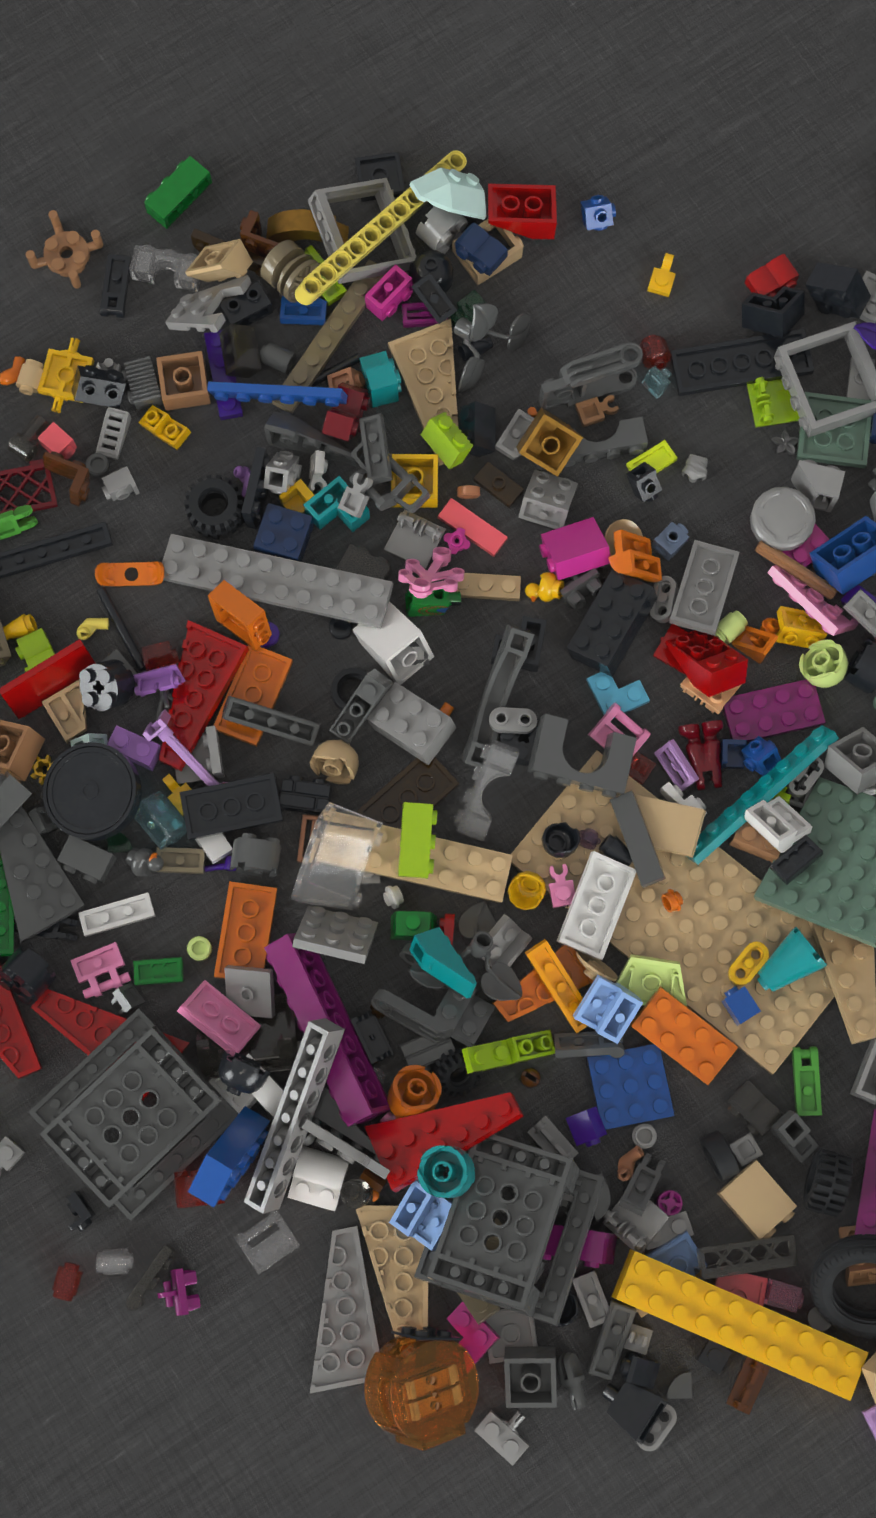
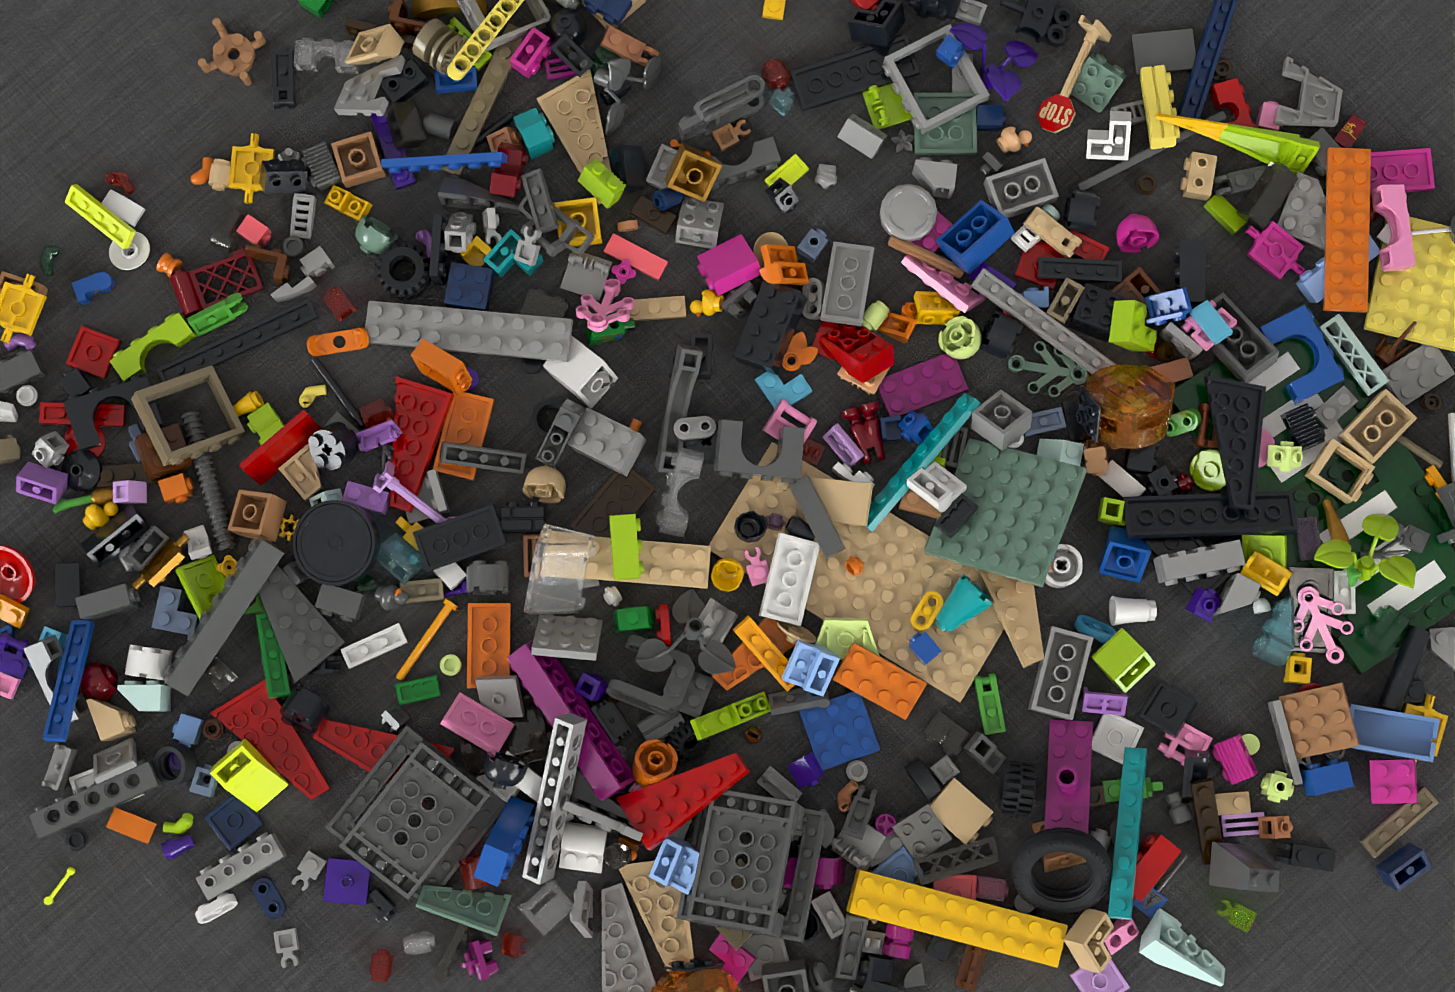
camera: 10 degrees left, 5 degrees up
(43, 1179) = (346, 882): none -> dark purple plate
(83, 513) = (287, 293): none -> light grey slope
(98, 963) = (365, 690): bright pink plate -> none
(137, 532) = (338, 303): none -> clear red brick
(176, 915) = (426, 638): none -> light orange bar
(182, 1231) = (470, 908): none -> sand green wing
(187, 464) = (374, 235): none -> sand green cylinder
(220, 1280) = (511, 944): none -> clear red tile
(308, 1249) = (582, 908): none -> light grey wing
(355, 994) = (591, 686): none -> dark purple brick
(433, 1165) = (680, 822): teal brick -> none
(439, 959) = (659, 646): teal slope -> none
(485, 292) = (626, 46): none -> nougat hinge
(517, 467) = (667, 198): none -> dark blue brick
(640, 655) = (800, 352): none -> orange plate
(666, 1341) = (897, 941): none -> magenta wheel
(711, 1218) = (921, 832): none -> dark grey hinge
(741, 430) = (862, 136): none -> light grey hinge
(809, 780) = (960, 442): light grey beam -> none
(852, 348) = (950, 51): none -> blue brick

